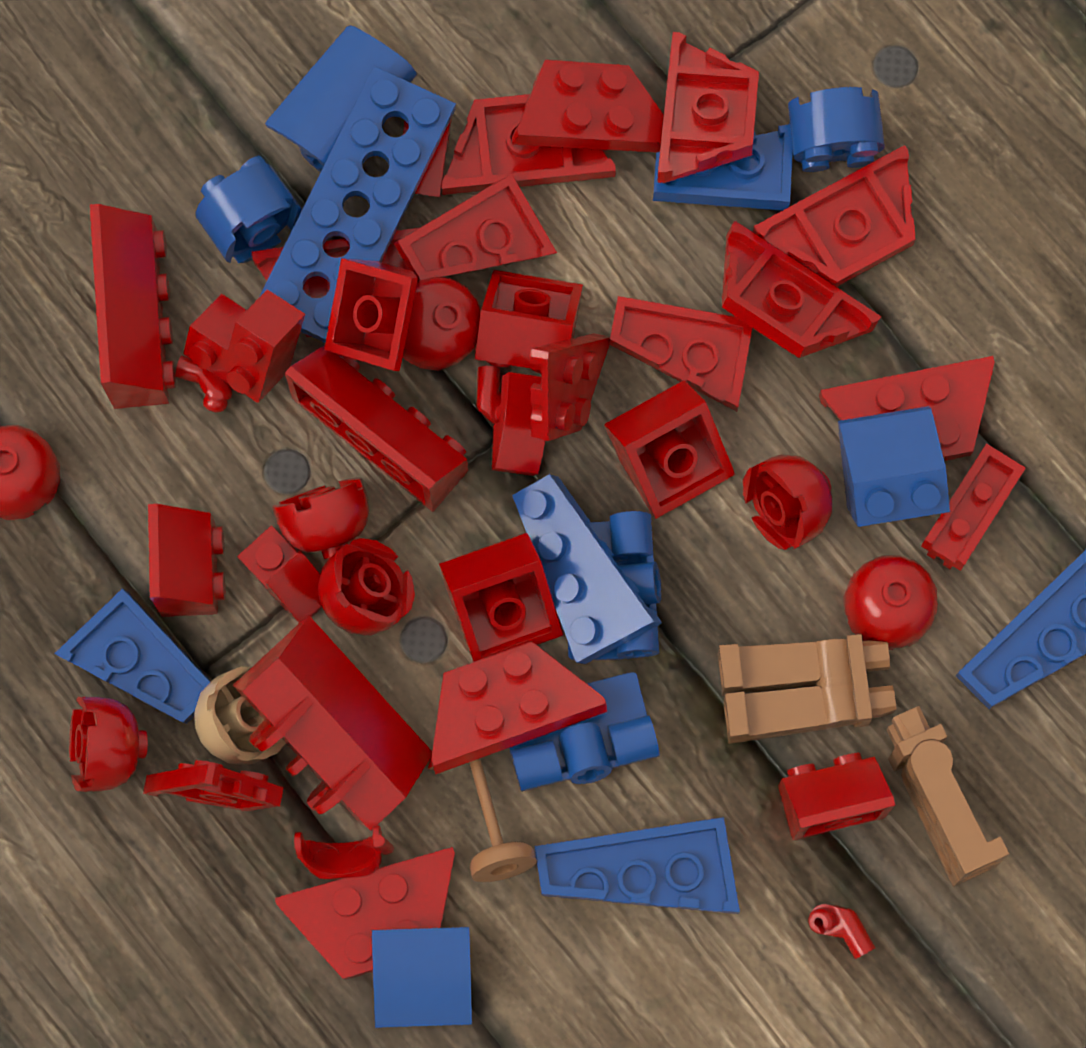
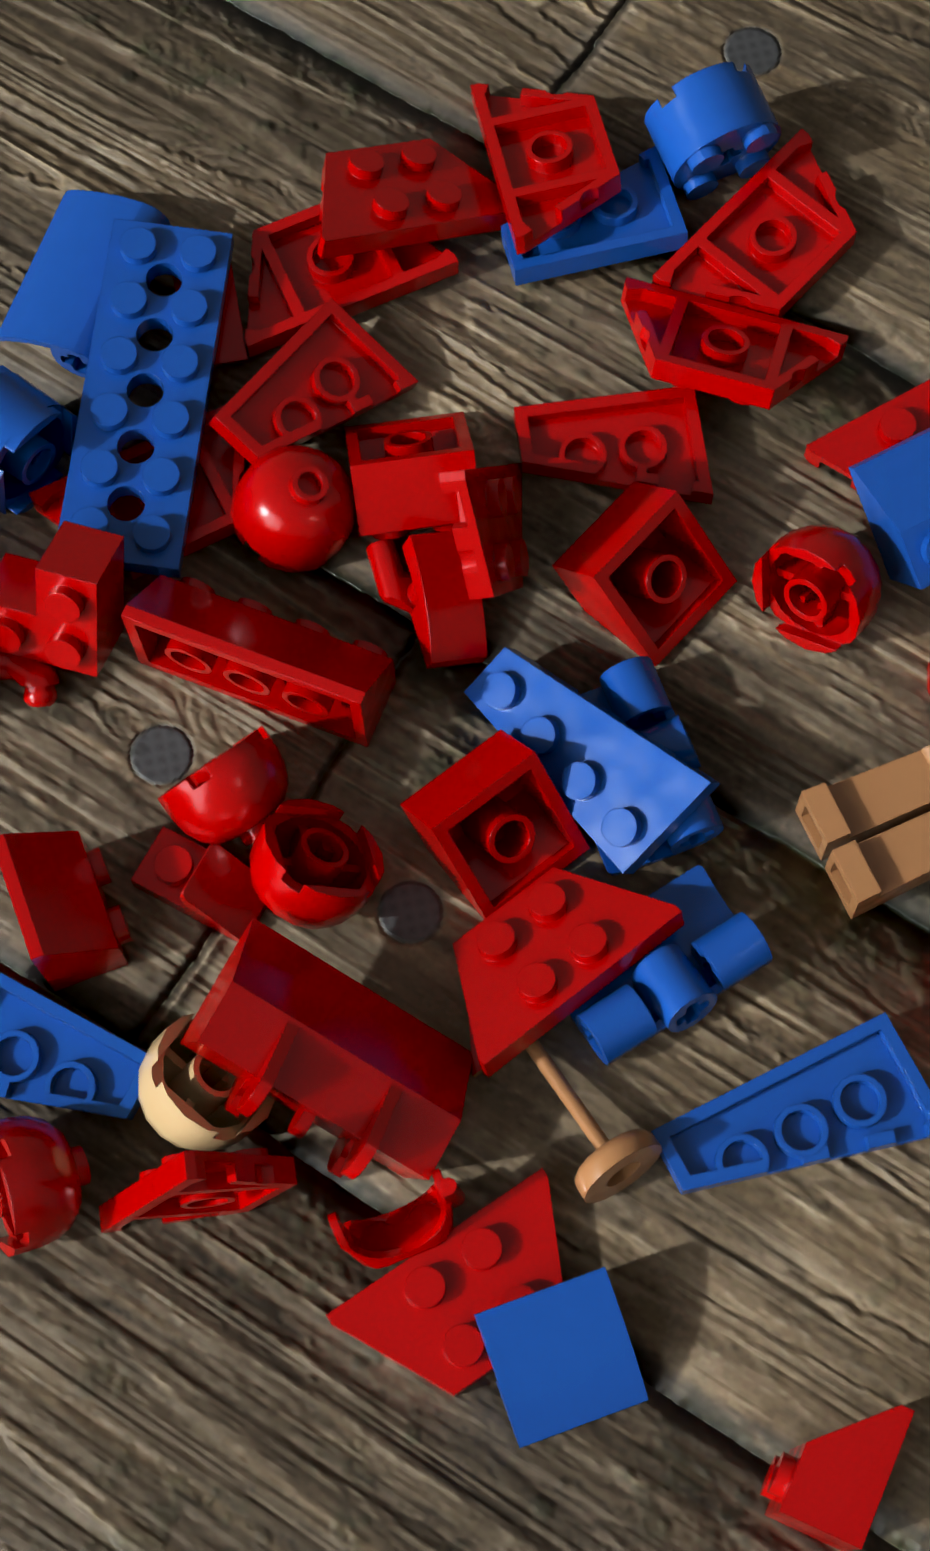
camera: 15 degrees left, 5 degrees down
(371, 312) = (210, 508): red slope -> none

